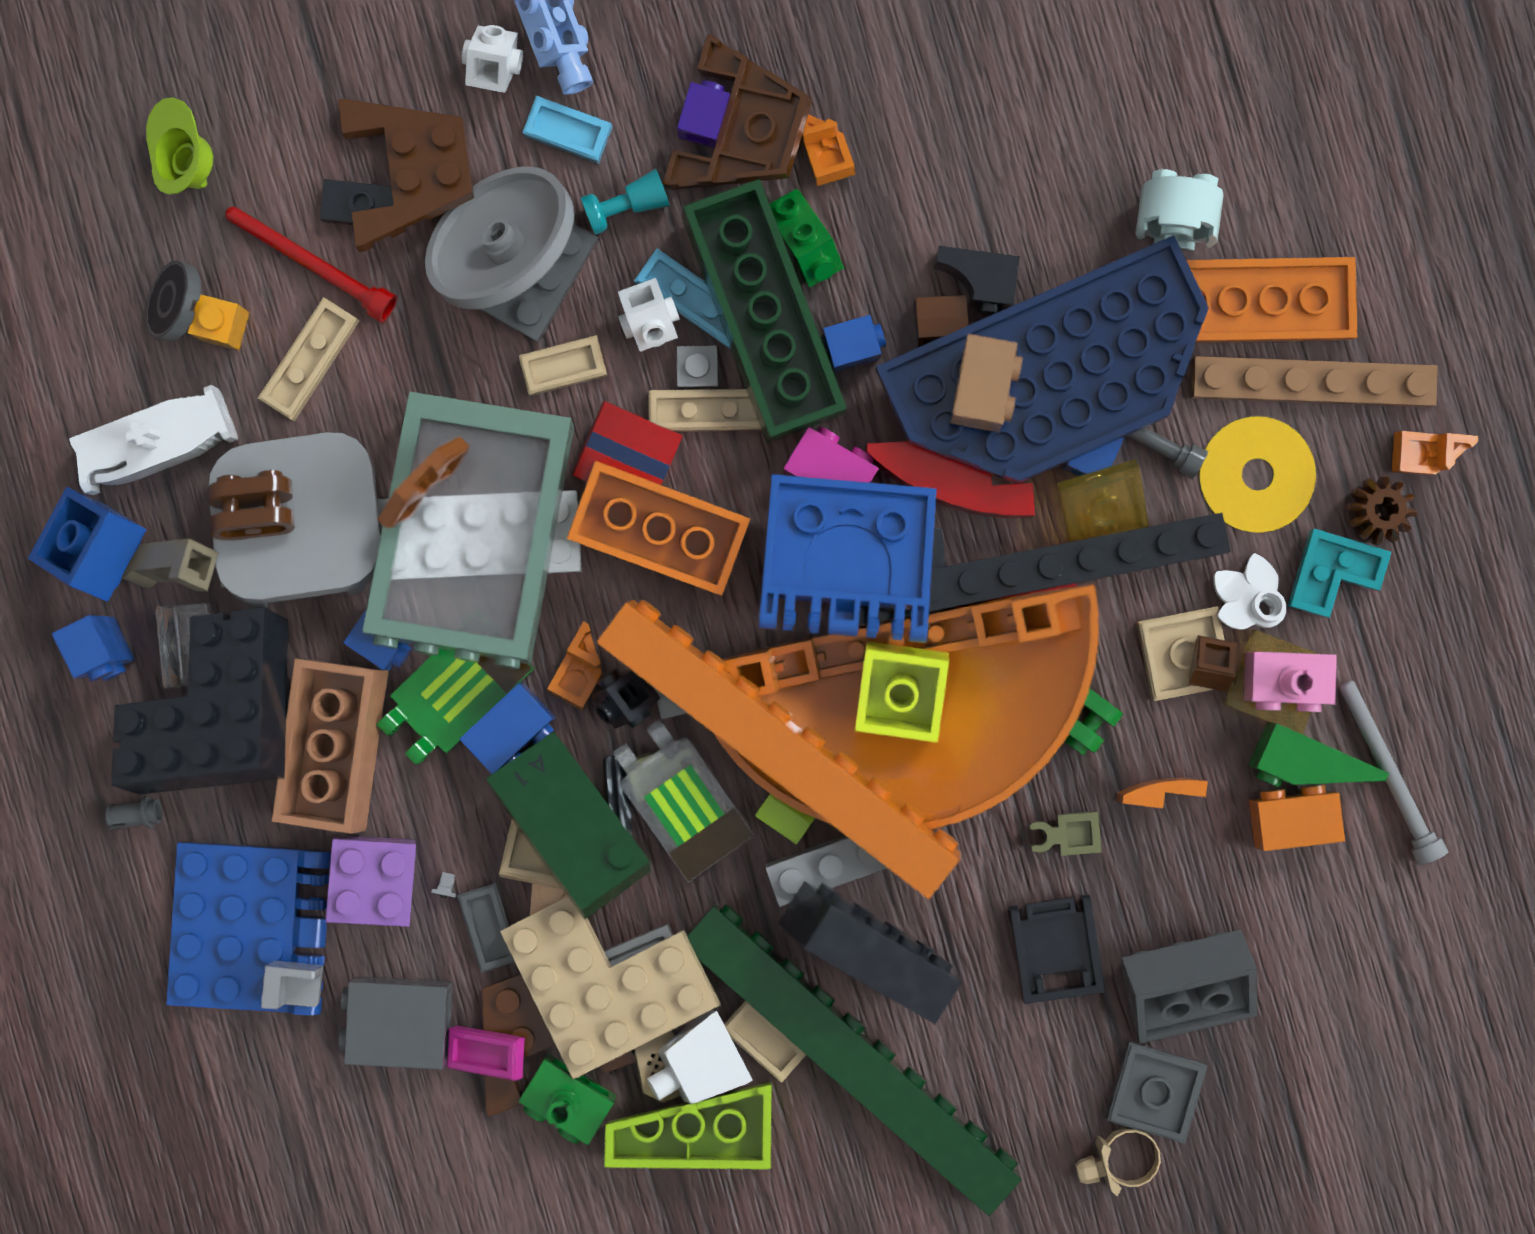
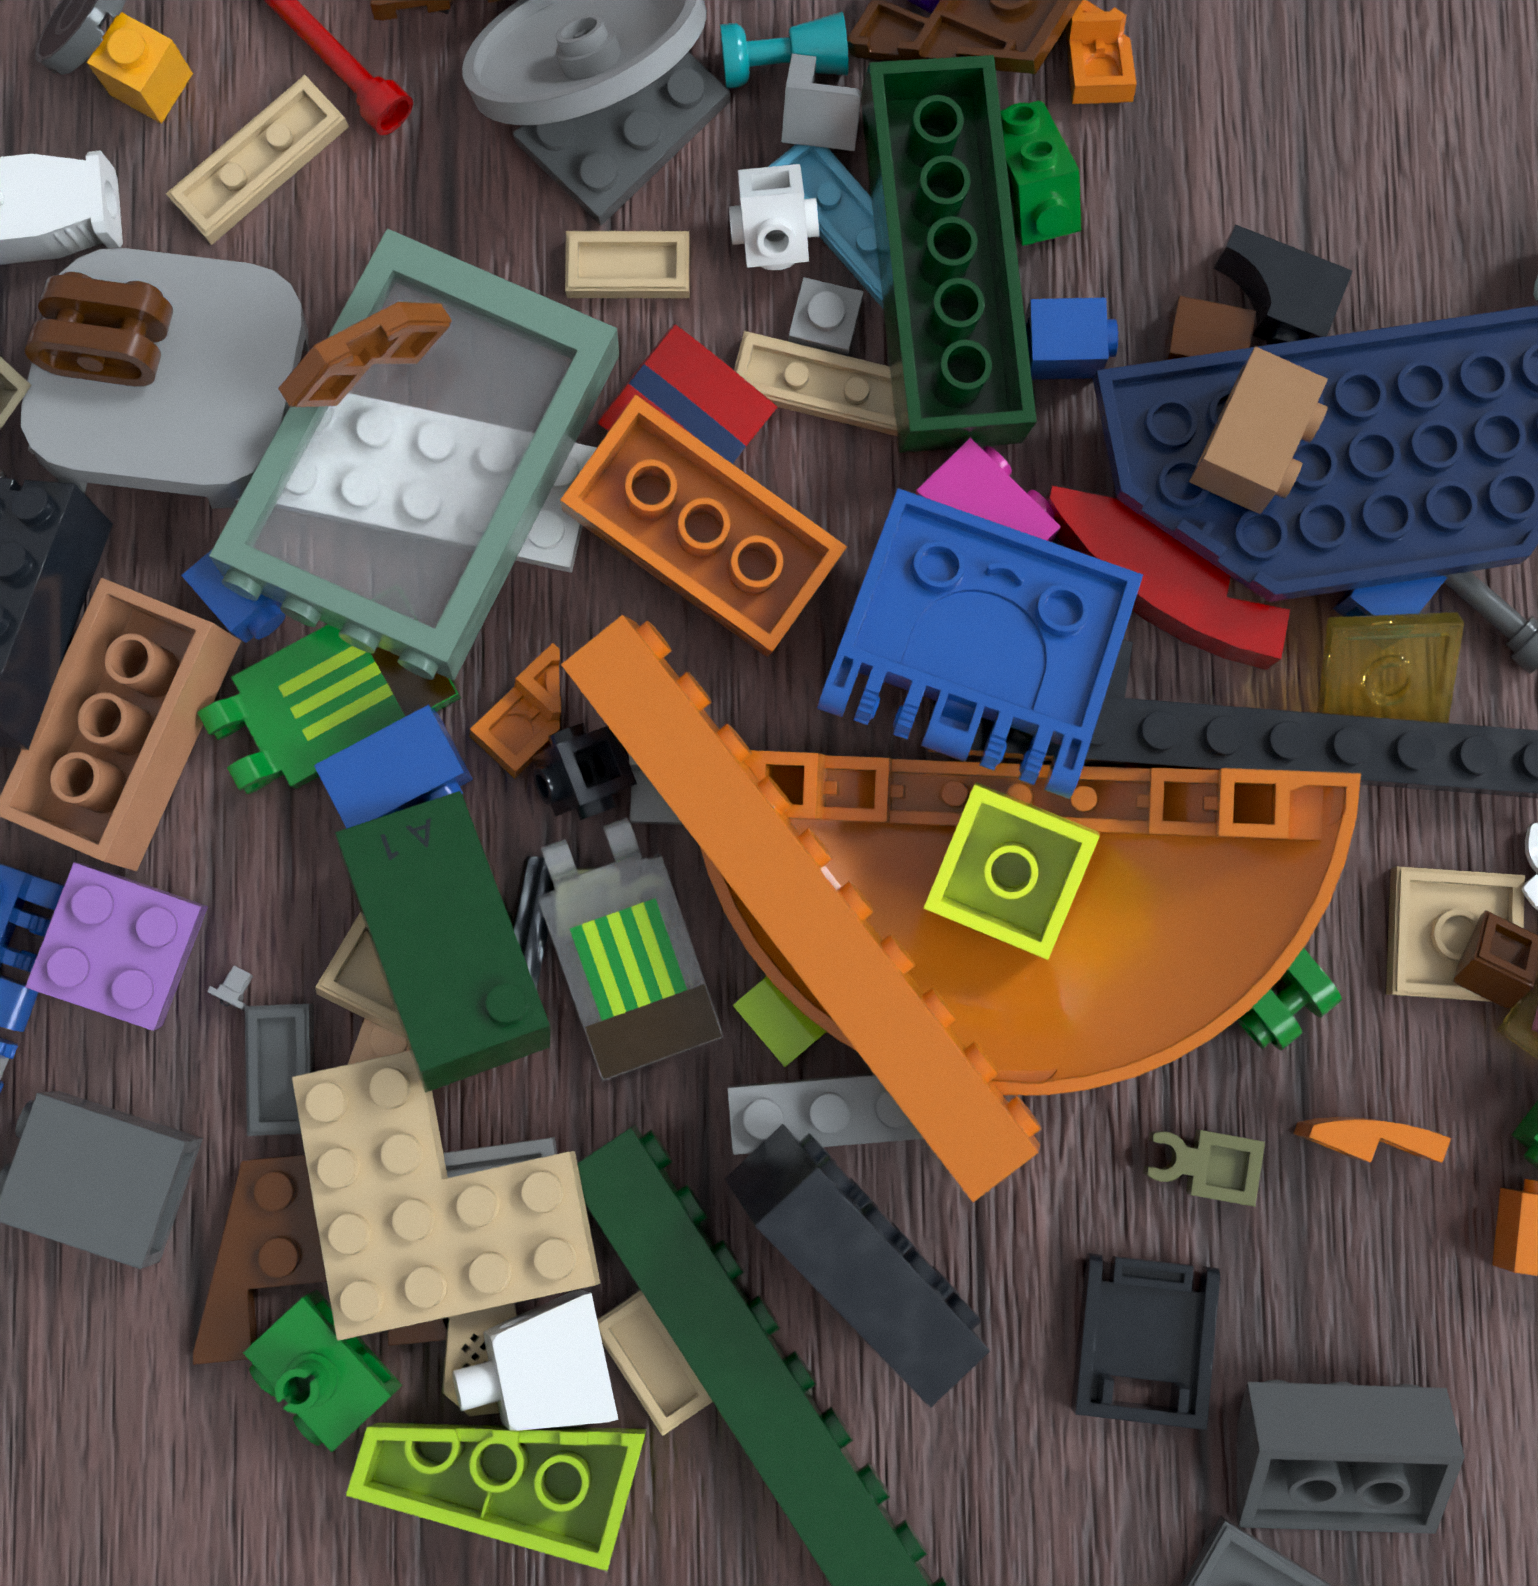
camera: 15 degrees right, 5 degrees down
(485, 1052) = (217, 1262): dark pink tile -> none
(658, 241) = (818, 112): none -> light grey panel

